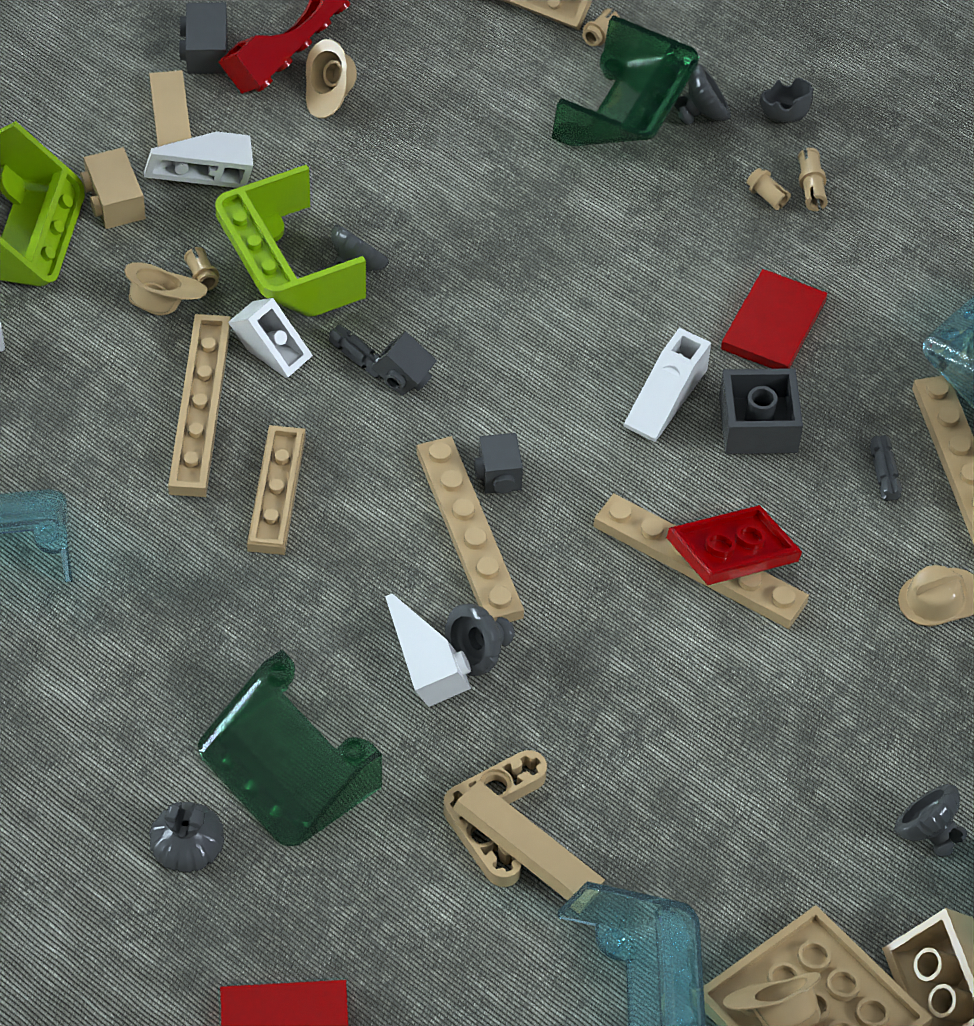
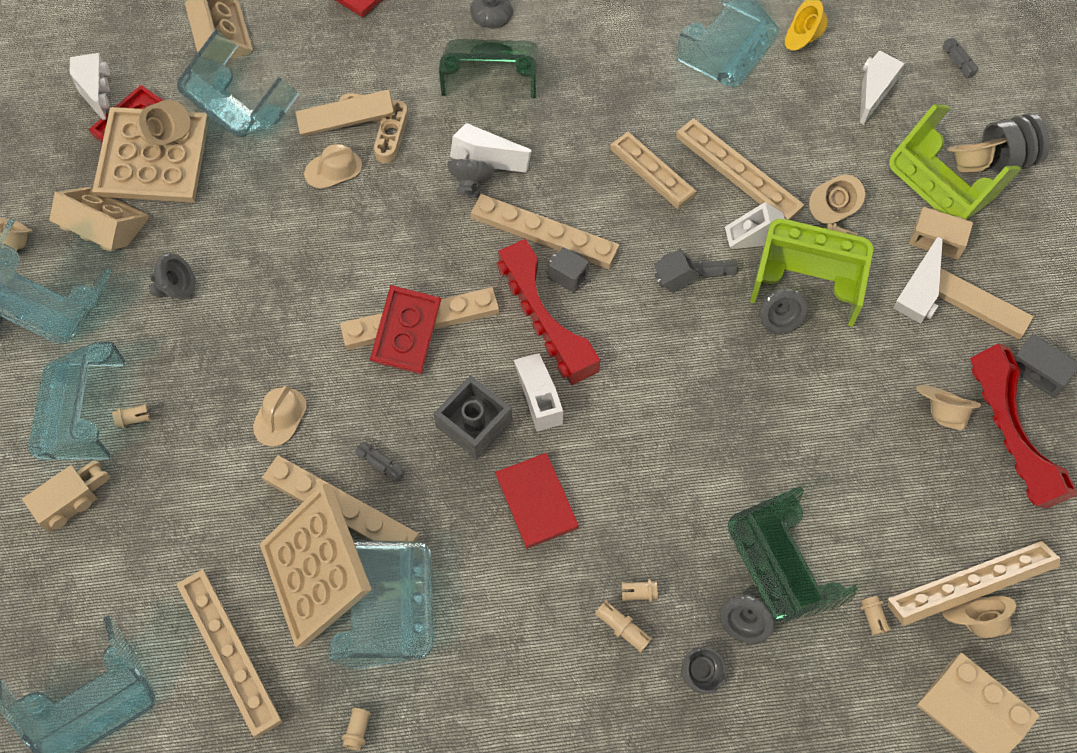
camera: 135 degrees right, 10 degrees up
(545, 501) = (573, 353): none -> red arch
(609, 809) = (333, 167): none -> tan piece

